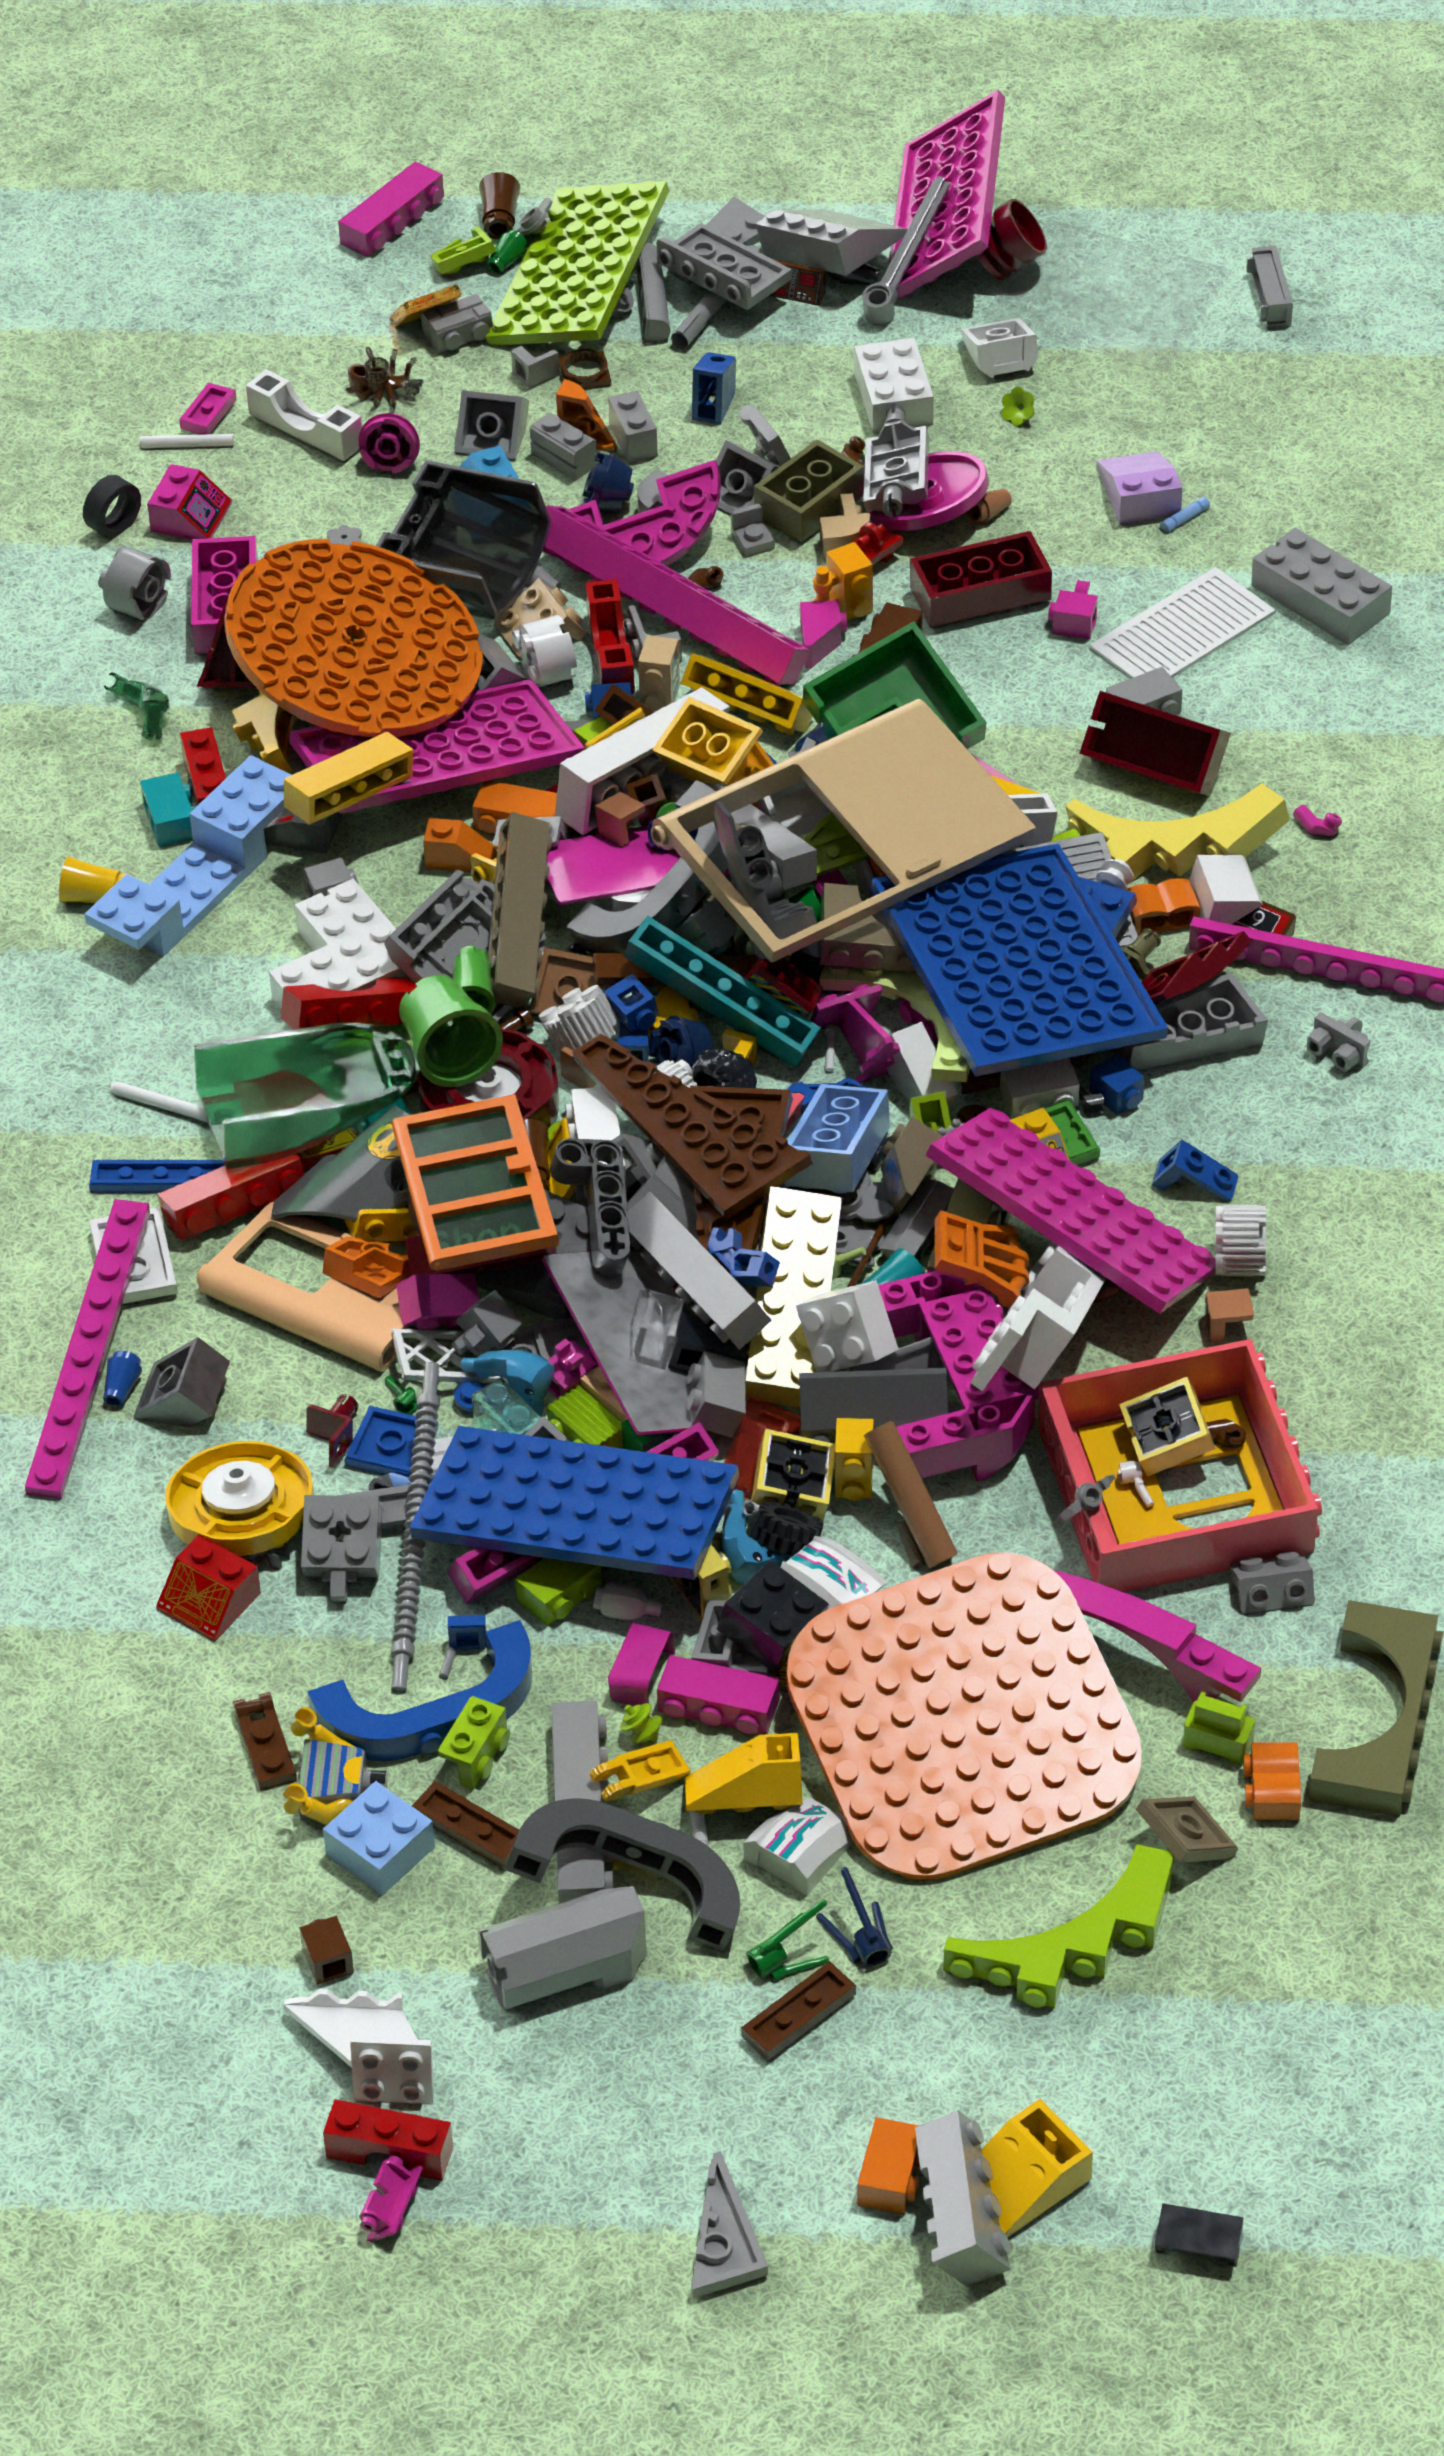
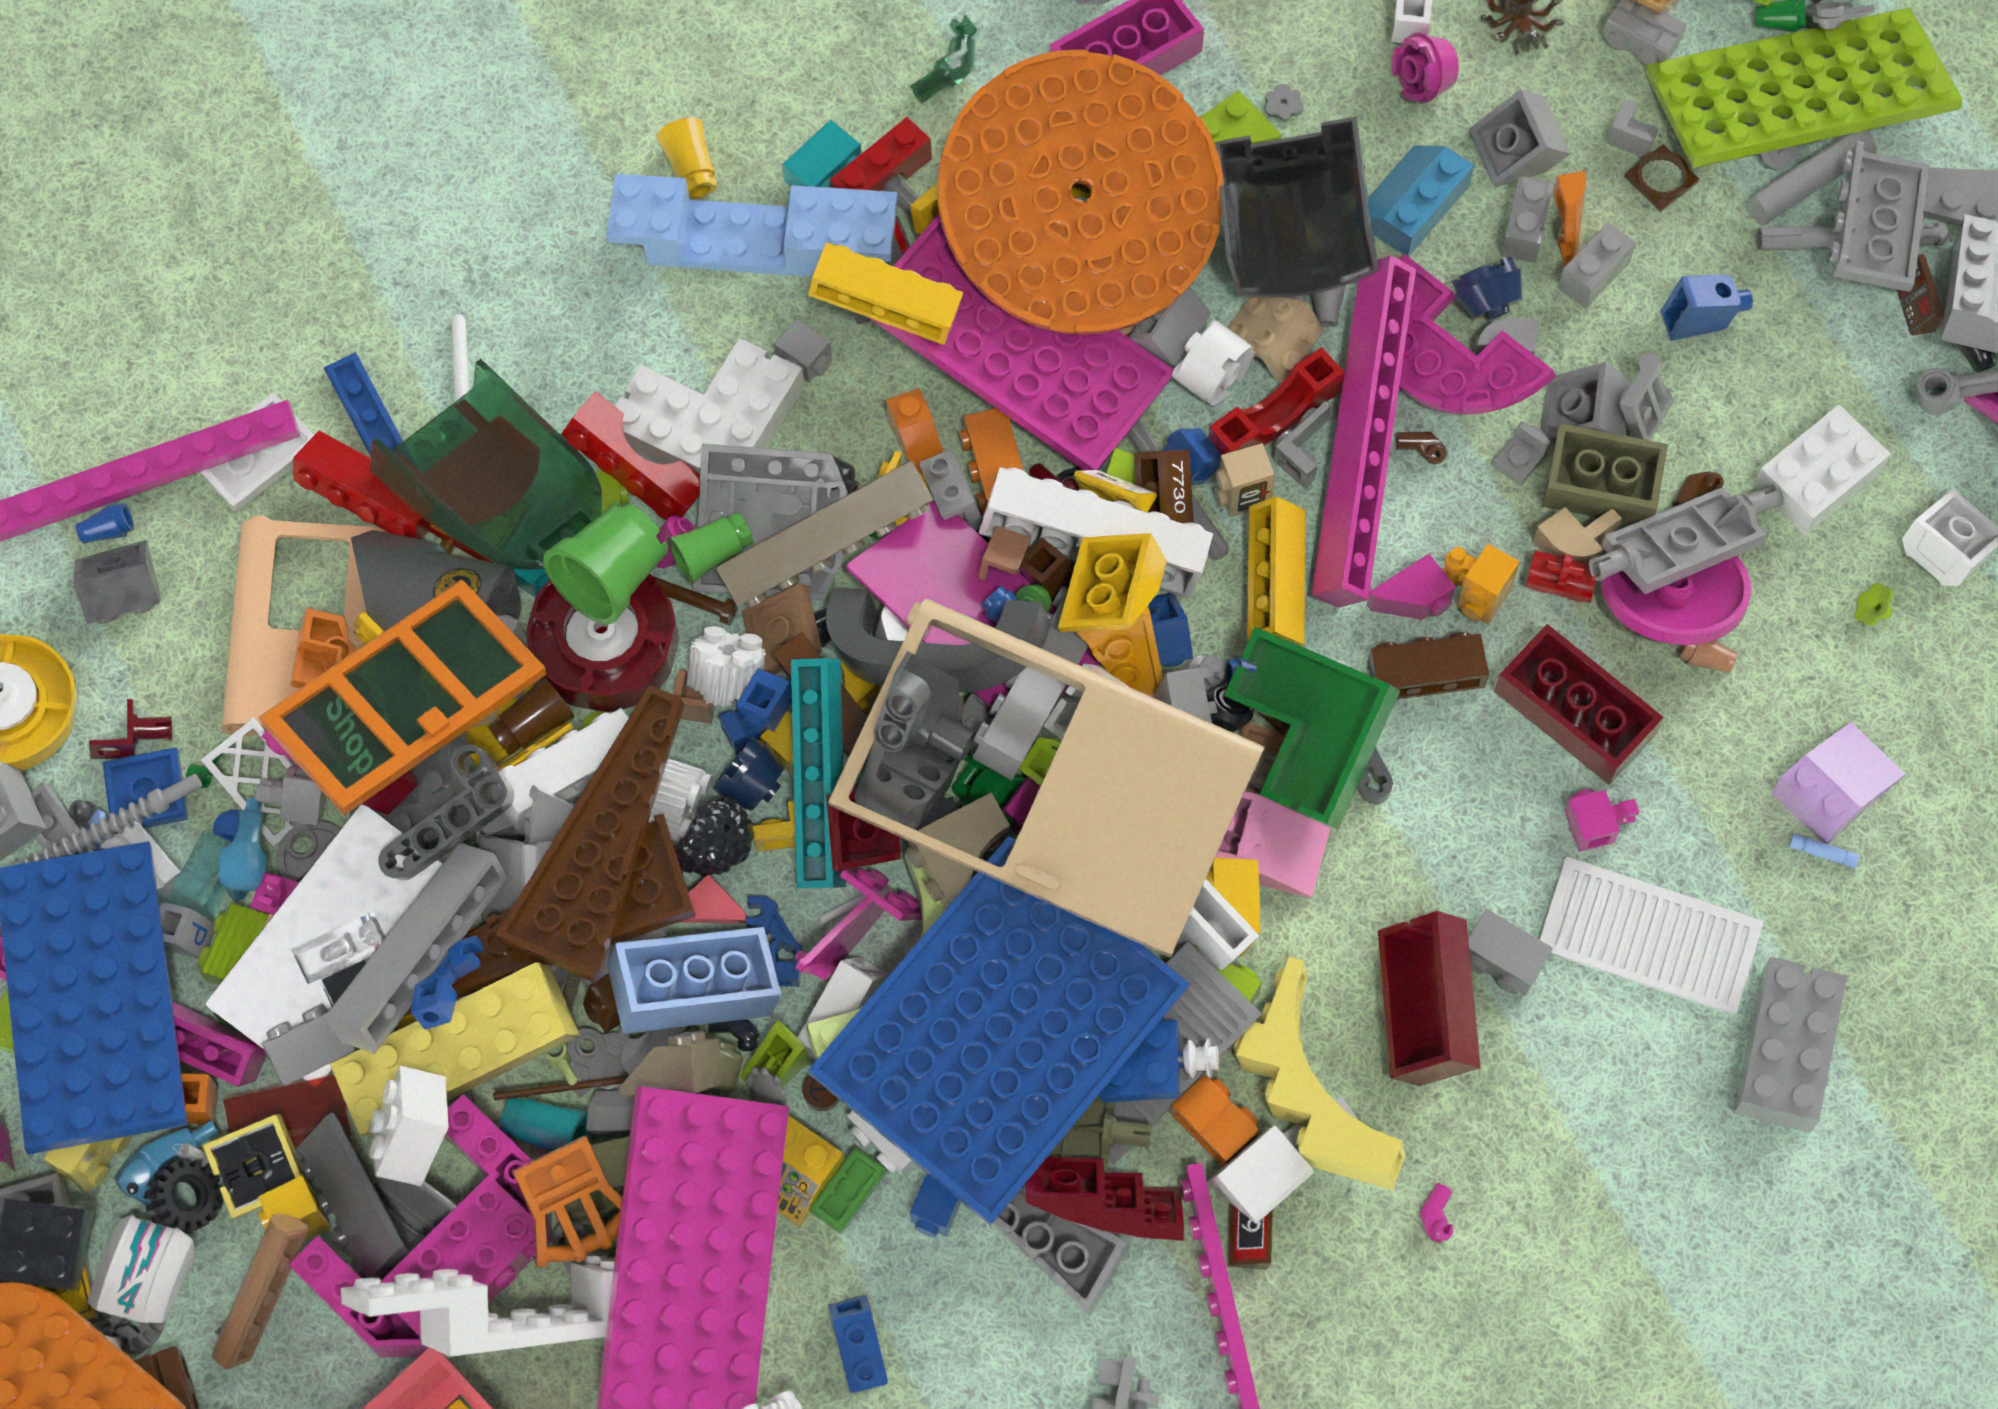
camera: 60 degrees right, 20 degrees up
(1091, 1103) = (905, 1192): dark grey hand -> none

